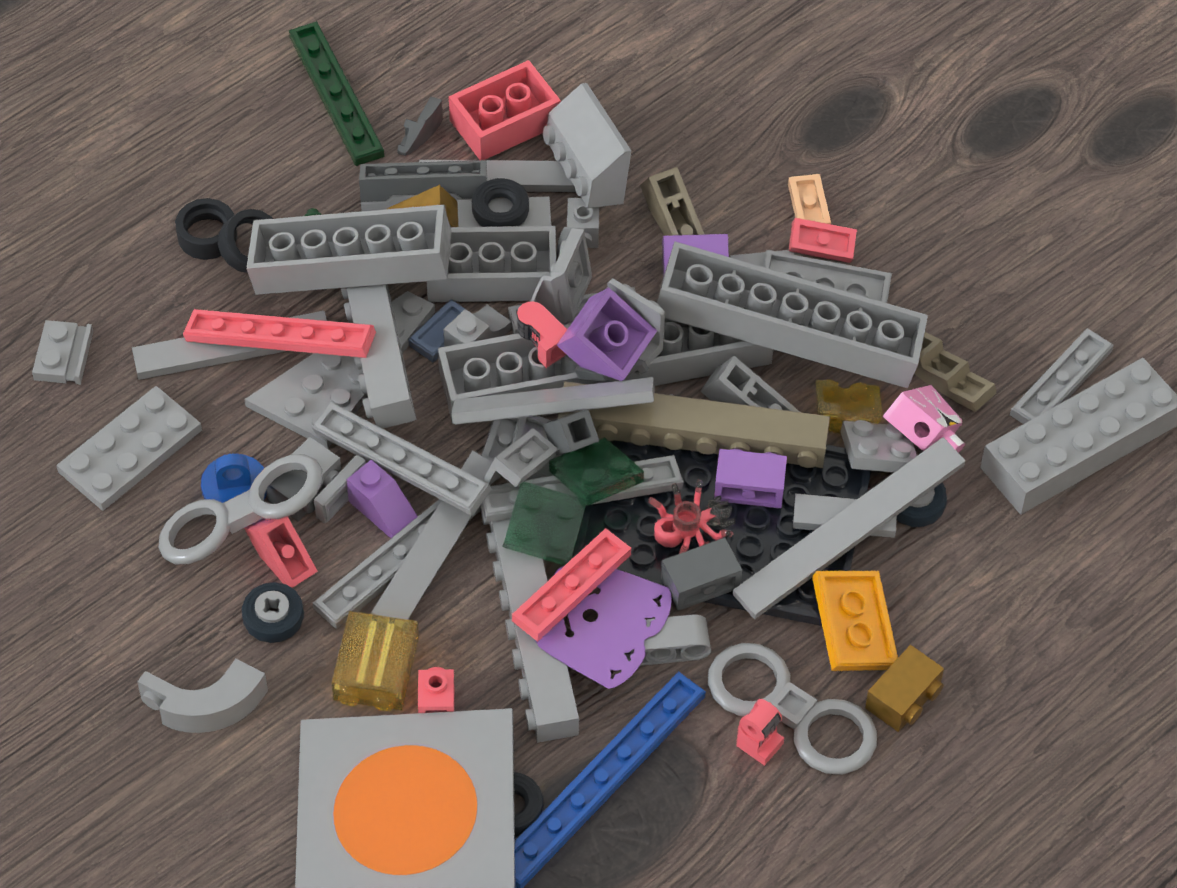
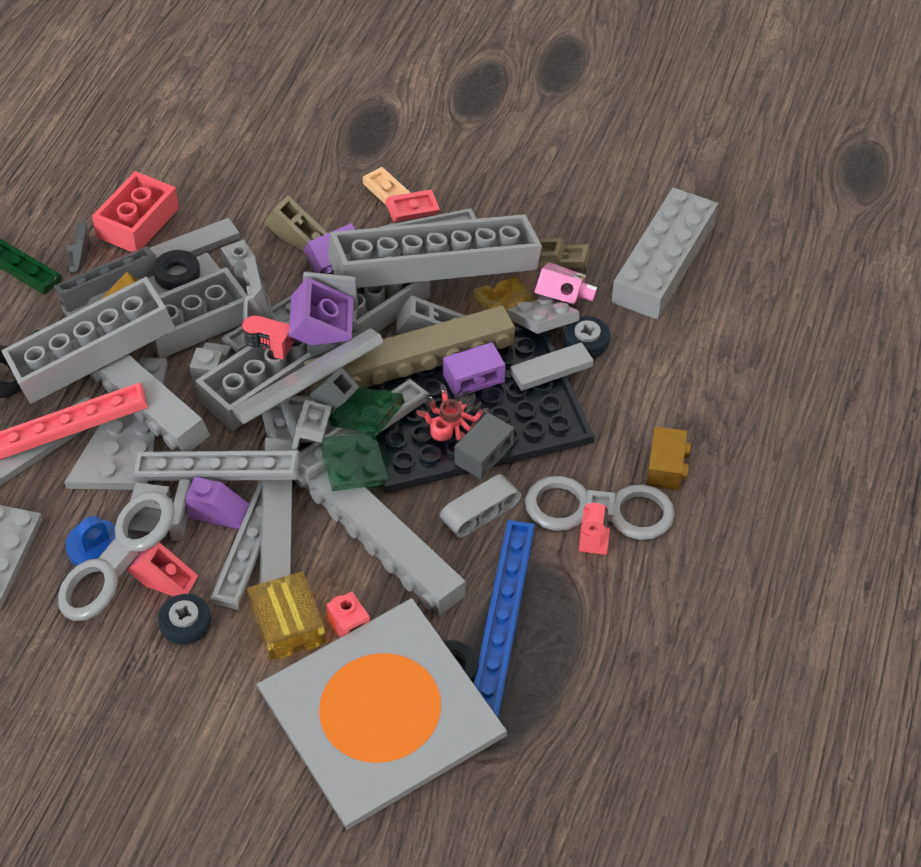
camera: 30 degrees left, 5 degrees down
(208, 708) = (177, 711): light grey arch -> none
(431, 334) = (179, 375): sand blue tile -> none
(571, 584) = (400, 493): coral plate -> none
(589, 148) = (217, 207): light grey slope -> none
(619, 628) = (451, 509): medium lavender piece -> none
(848, 528) = (561, 373): light grey tile -> none
(855, 620) = (605, 430): light orange tile -> none
(1063, 376) = (624, 226): light grey tile -> none

